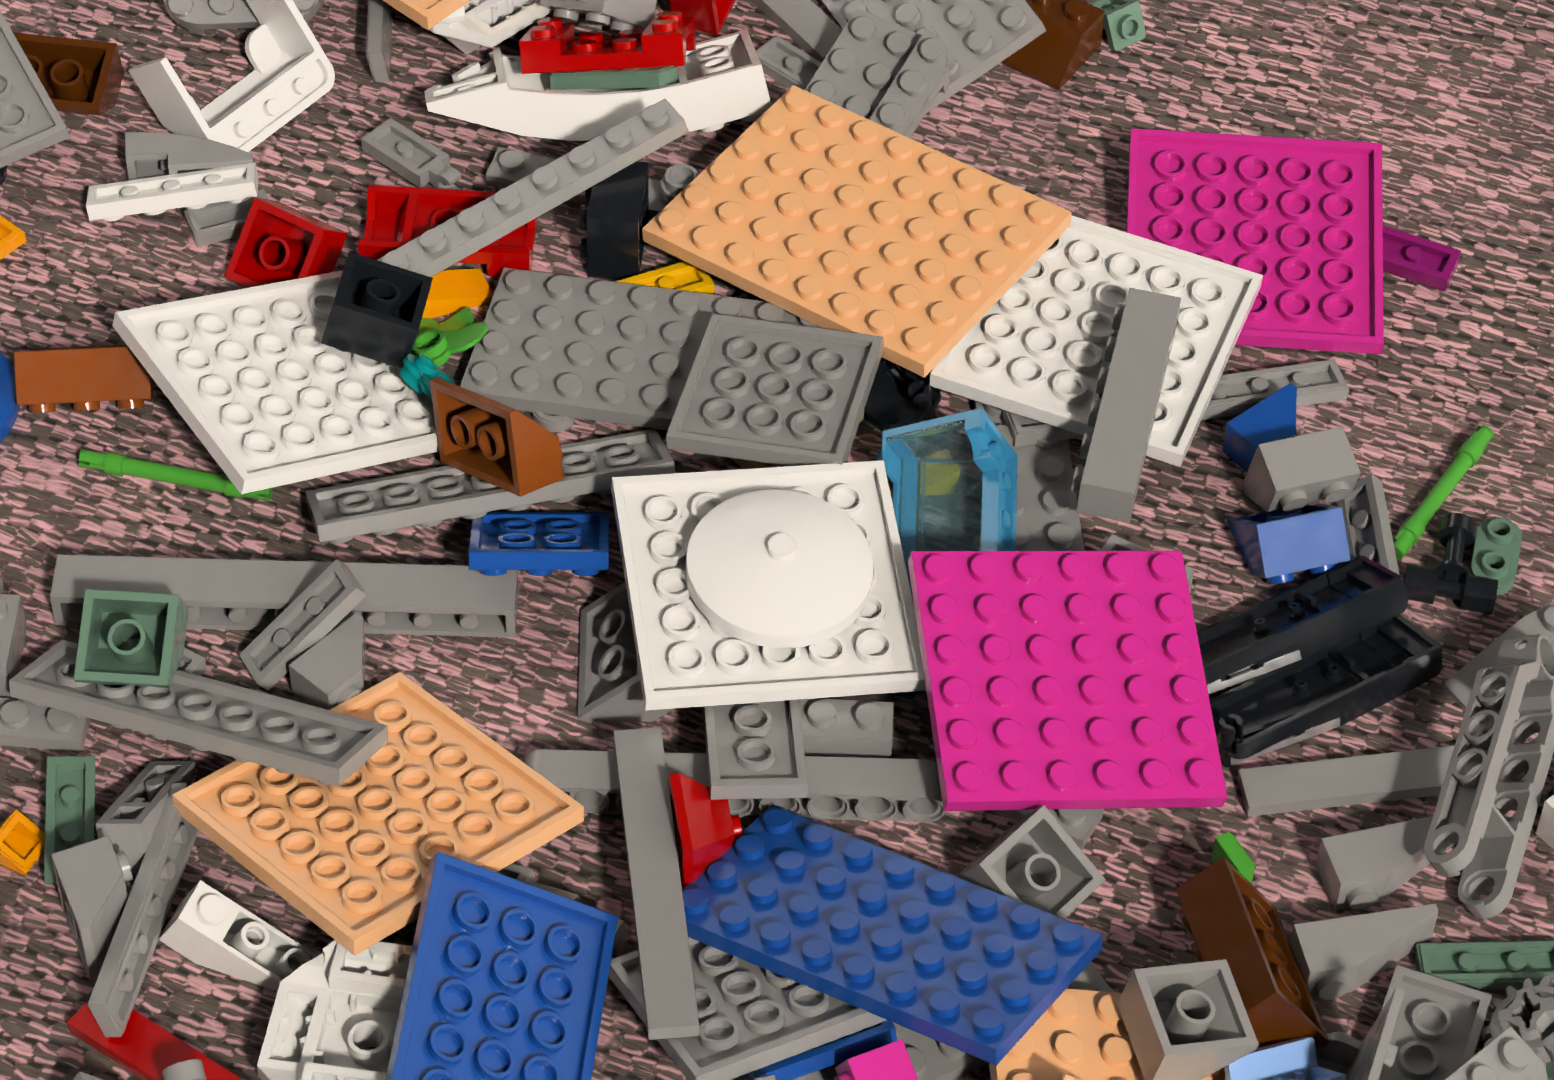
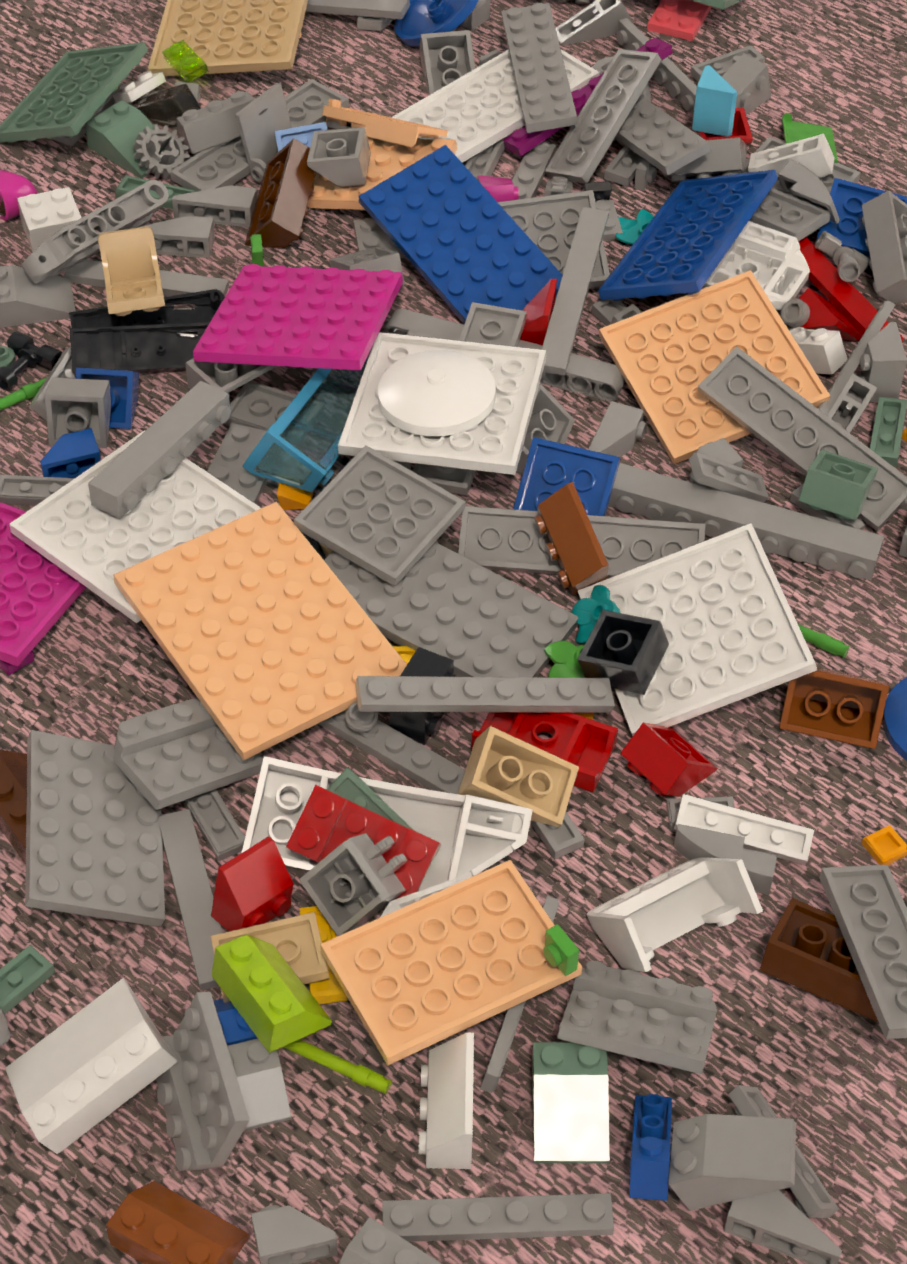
camera: 160 degrees left, 0 degrees up
(210, 1000) = (827, 316): none -> red slope
(263, 971) = (795, 313): none -> light grey tile
(462, 147) = (519, 775): none -> tan slope
(501, 680) = (619, 430): none -> light grey slope
(1367, 690) = (131, 271): none -> tan bracket

